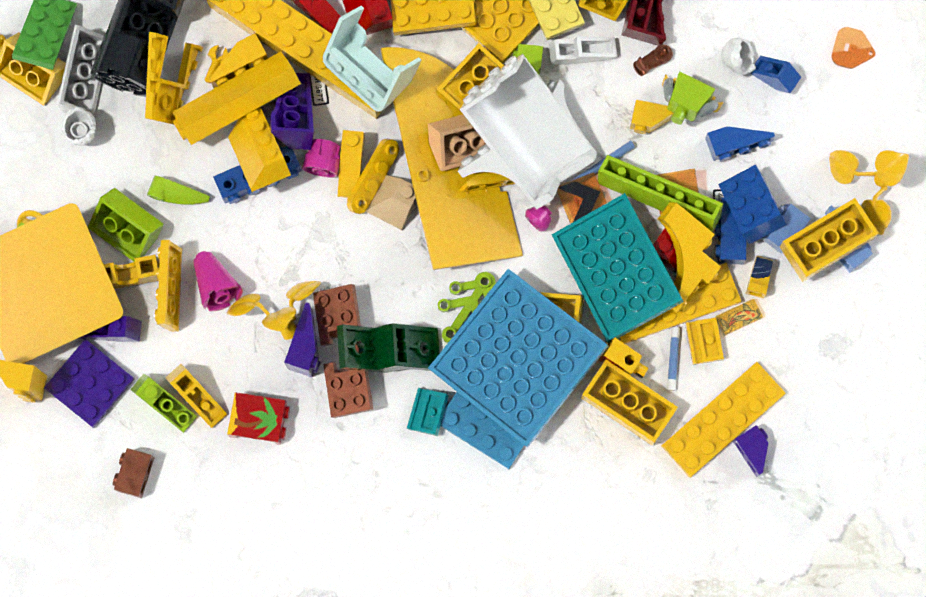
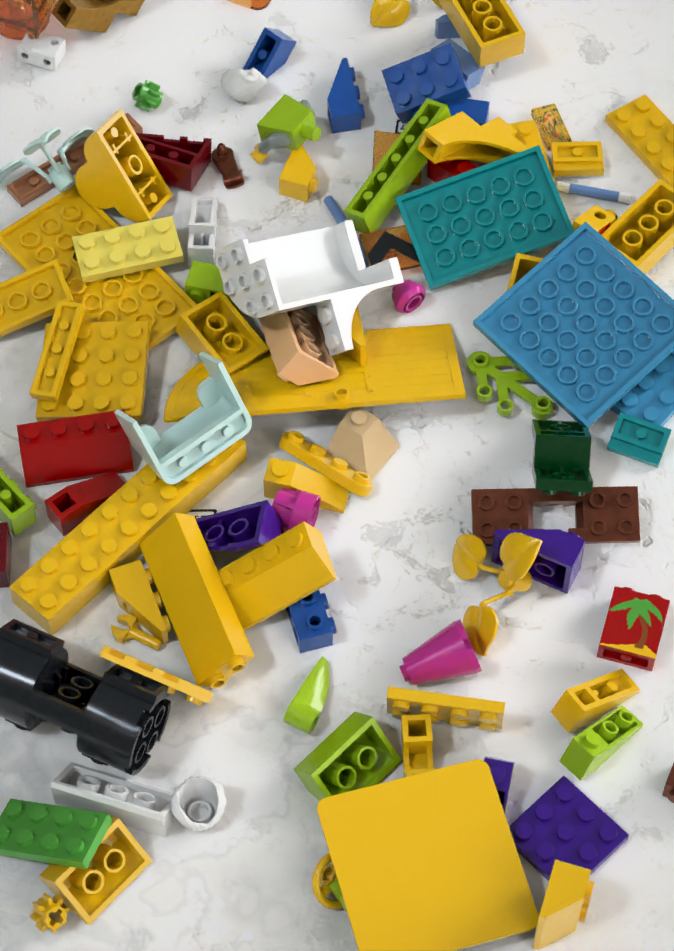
camera: 85 degrees left, 20 degrees down
(759, 277) = (508, 99): leg -> none

